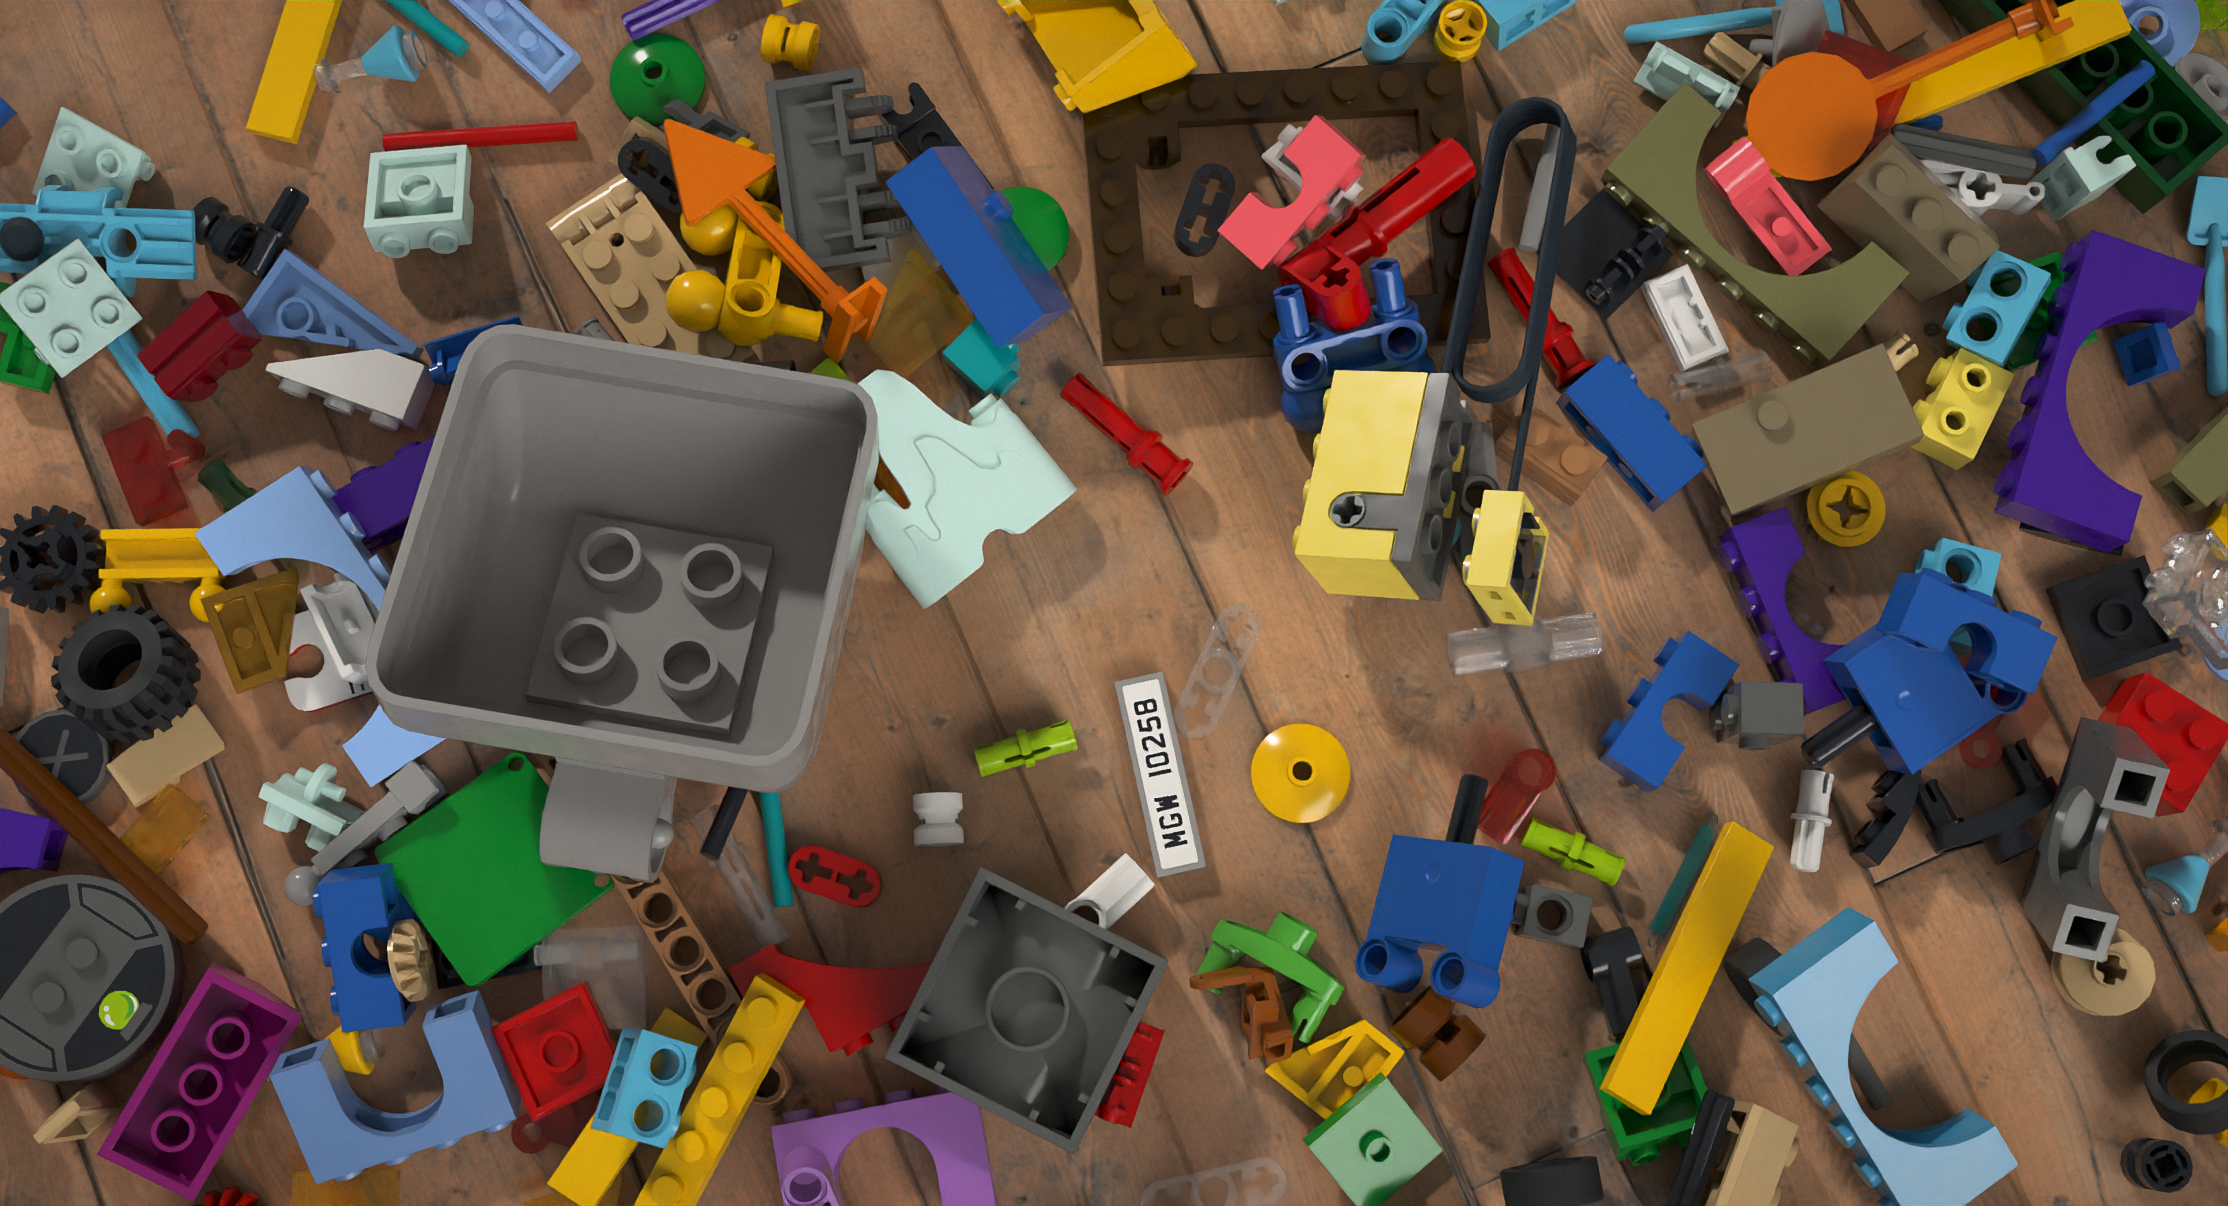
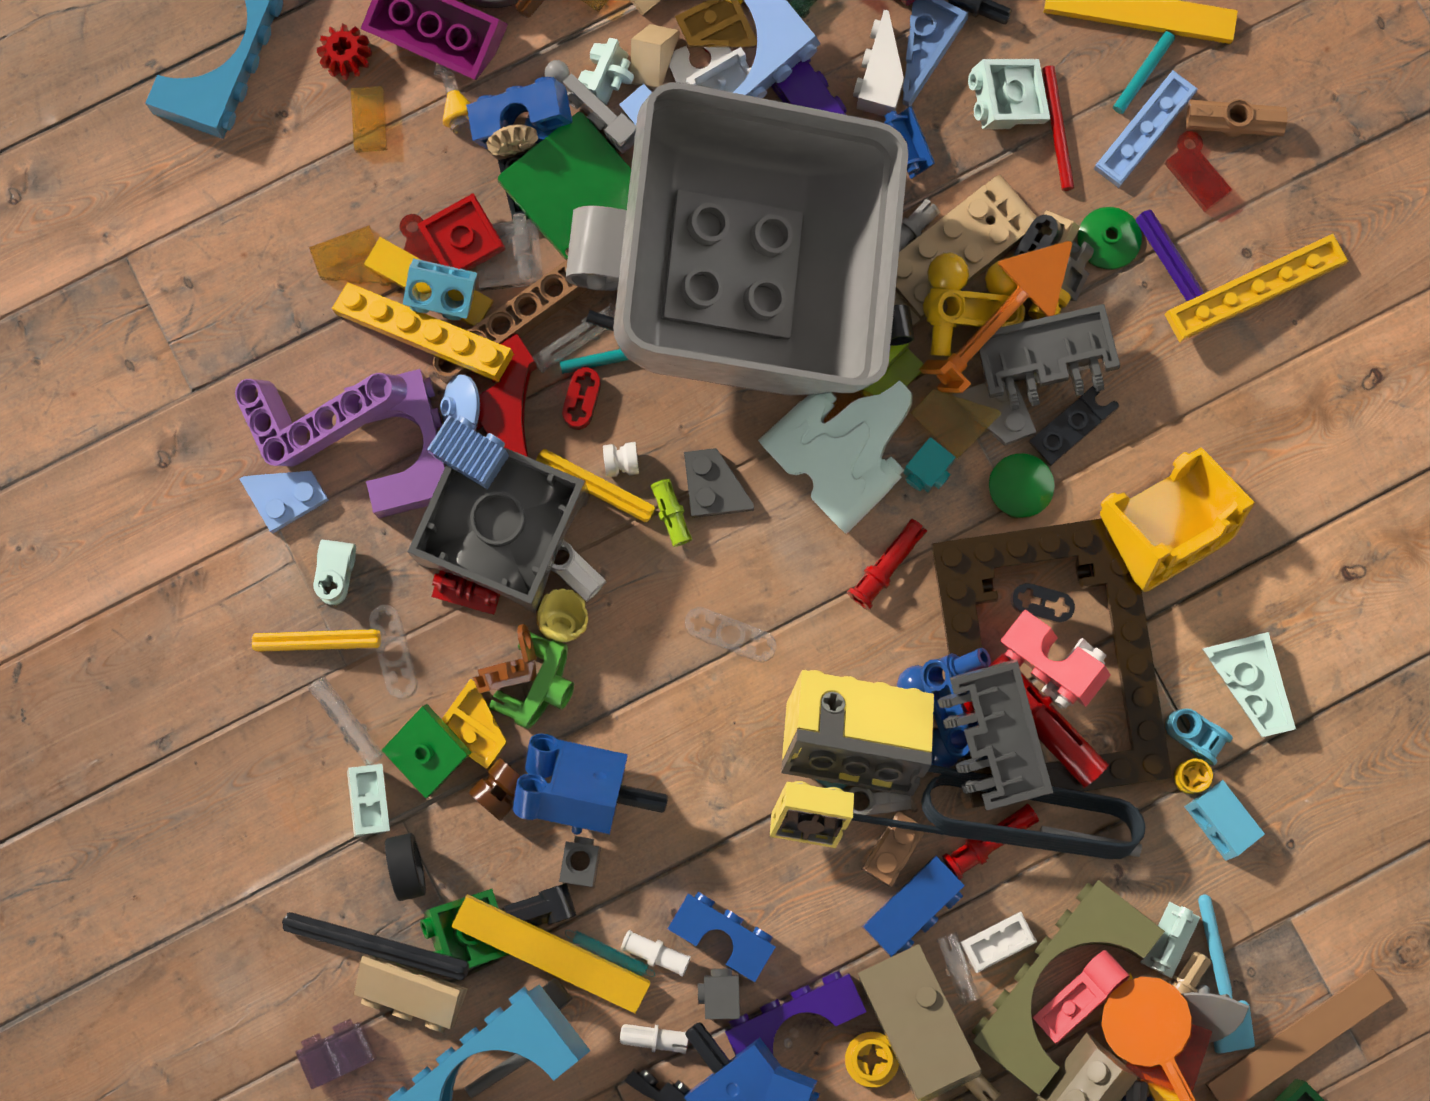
camera: 90 degrees right, 0 degrees up
(293, 733) = (652, 55): none -> tan slope
(346, 1135) = (404, 115): medium blue arch -> none
(393, 56) = (1106, 66): piece -> none
(790, 42) = (1141, 321): yellow wheel -> none
(837, 1065) = (461, 399): none -> light blue dish
(923, 1045) = (468, 451): none -> medium blue brick
(978, 244) = (1003, 453): blue brick -> none
(979, 853) = (601, 488): none -> yellow axle
(986, 683) = (713, 485): none -> dark grey wing
(1160, 774) = (659, 601): tile -> none
(1176, 922) = (562, 615): none -> light yellow hair
(1283, 793) = (674, 710): yellow dish -> none
(1412, 267) = (1004, 735): none -> dark grey hinge
(1511, 799) = (656, 833): clear red piece -> none
(1523, 646) = (760, 846): clear piece -> none
(1572, 851) = (624, 876): lime pin -> none
(1609, 253) = (1041, 887): black hinge -> none
(1686, 811) = (655, 953): none -> white pin

